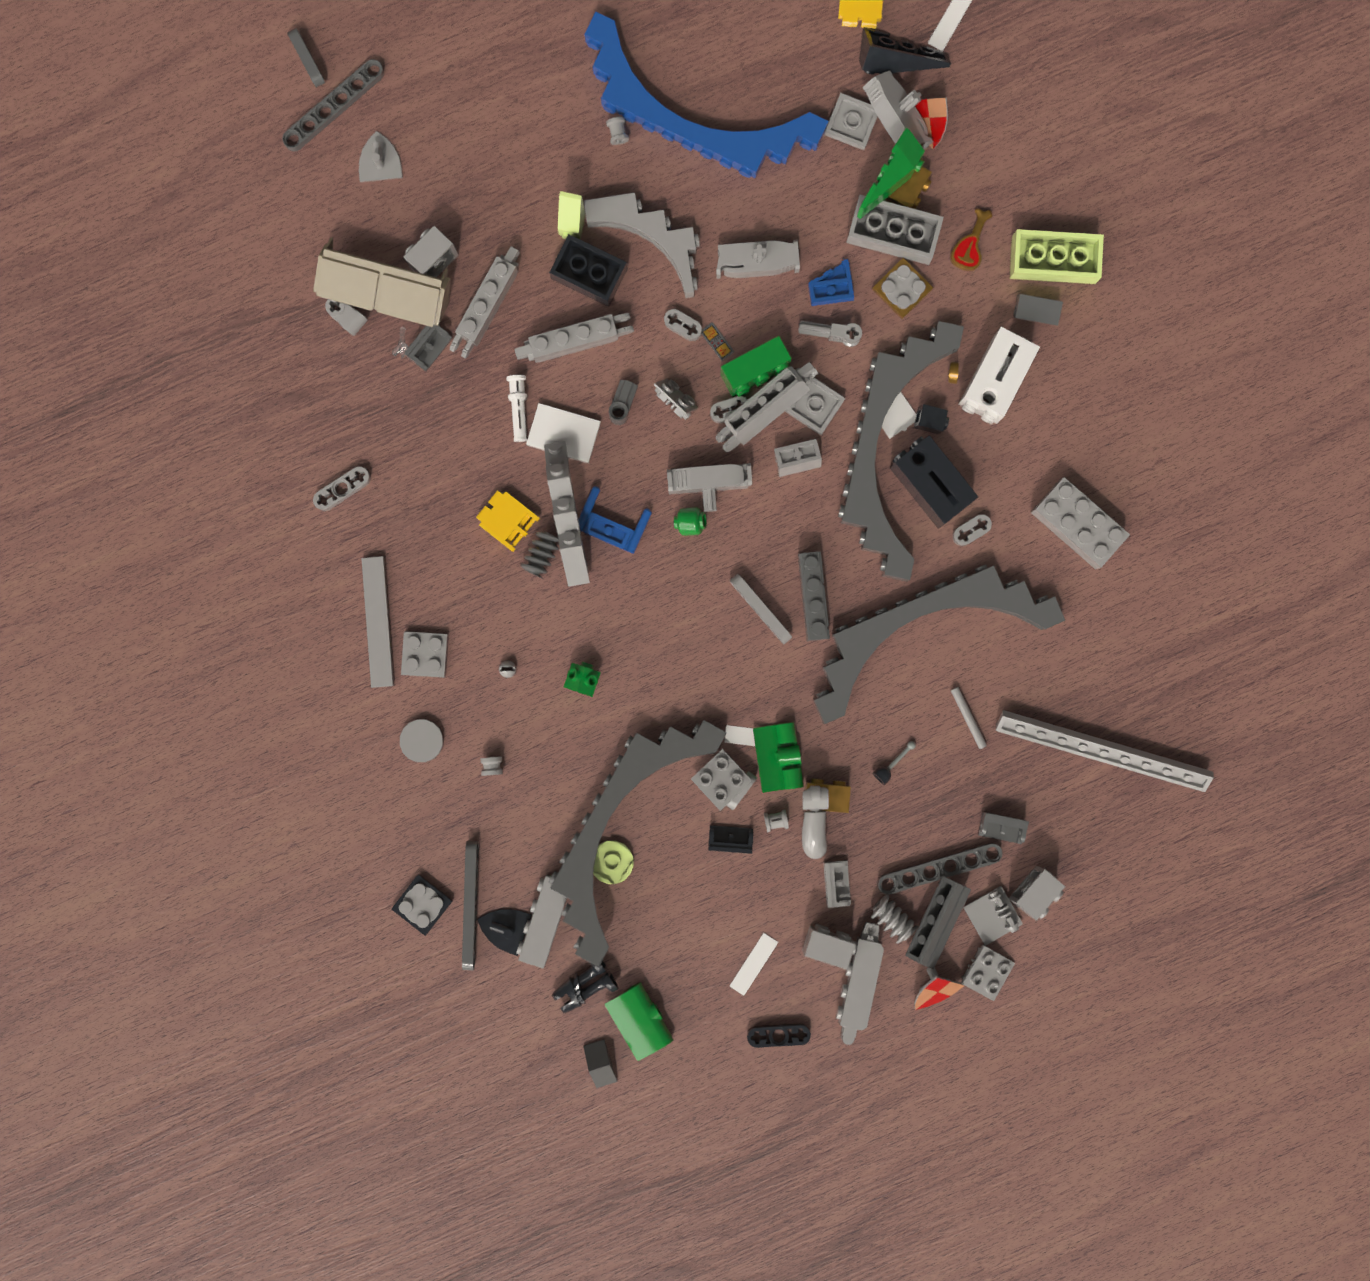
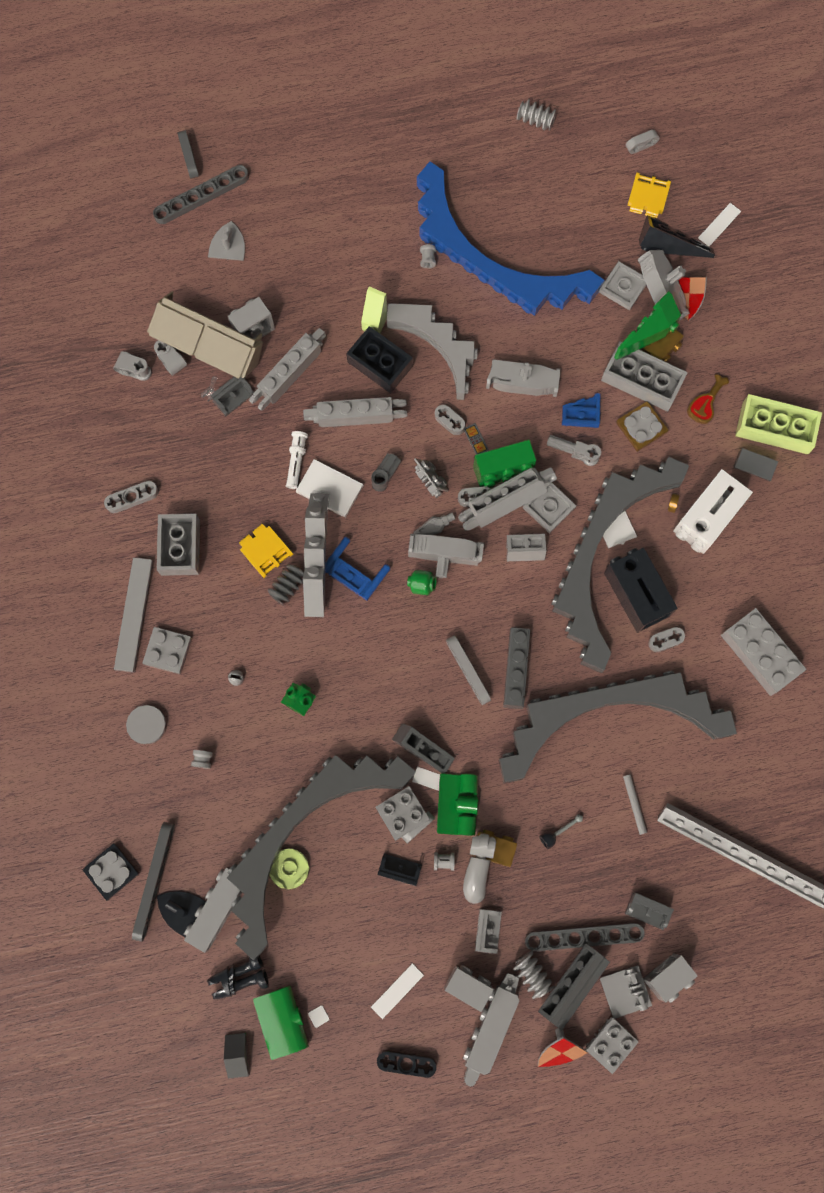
camera: 10 degrees right, 10 degrees down
(302, 335) = (132, 366): none -> light grey piece
(409, 534) = (178, 544): none -> light grey brick
(676, 1007) = (318, 1016): none -> white sticker
(690, 453) = (434, 525): none -> light grey piece
(729, 705) = (423, 748): none -> dark grey slope
(931, 419) = (647, 537): black brick -> none

